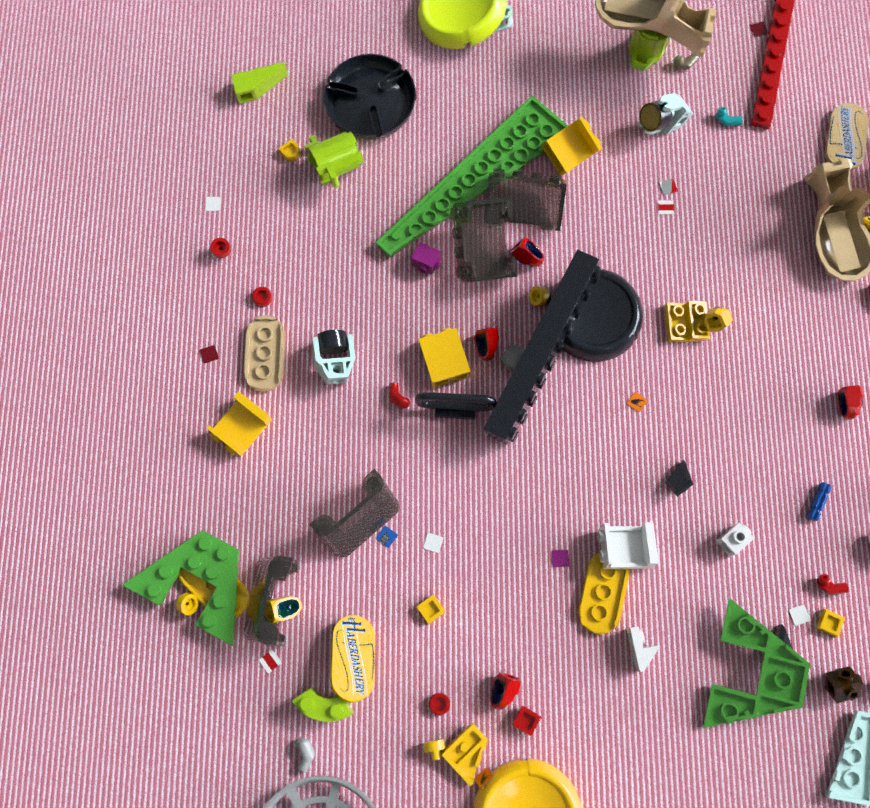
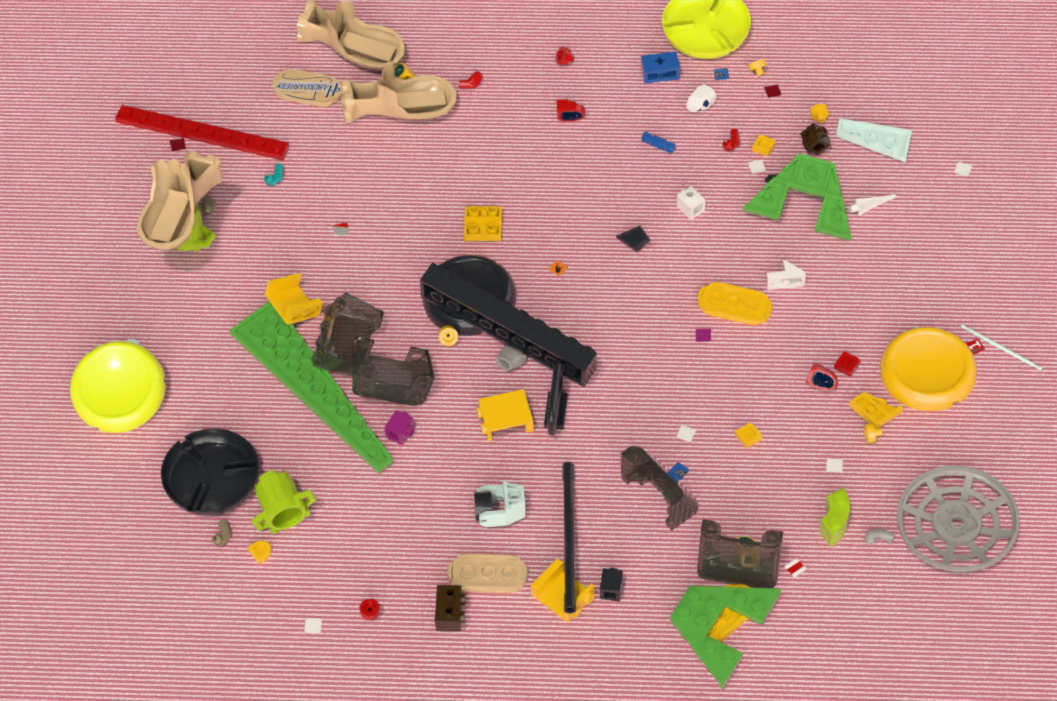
camera: 85 degrees left, 20 degrees down
(187, 604) = (741, 633): yellow tile -> none
(209, 354) = (483, 625): dark red sticker -> none
(218, 318) = (449, 608): none -> dark brown brick
(245, 471) = (611, 584): none -> black brick
(252, 427) = (569, 567): none -> black piece
(256, 82) = (178, 582): lime slope -> none
(262, 296) = (425, 576): red tile -> none
(307, 118) = (224, 534): none -> dark tan arm
(352, 659) = (793, 490): yellow tile -> none
(396, 398) = (543, 458): red arm -> none
(397, 704) = (834, 465): none -> white sticker
(439, 703) = (833, 431): red tile -> none
(483, 777) = (896, 397): orange sticker -> none
(486, 343) = (493, 379): red rock -> none
(527, 253) = (400, 343): red rock -> none
(628, 546) = (695, 277): white panel -> none
(665, 114) = (270, 220): piece -> none
(665, 206) = (362, 233): sticker -> none
(717, 319) = (485, 196): yellow rock -> none
(755, 744) = (865, 204): none -> white piece

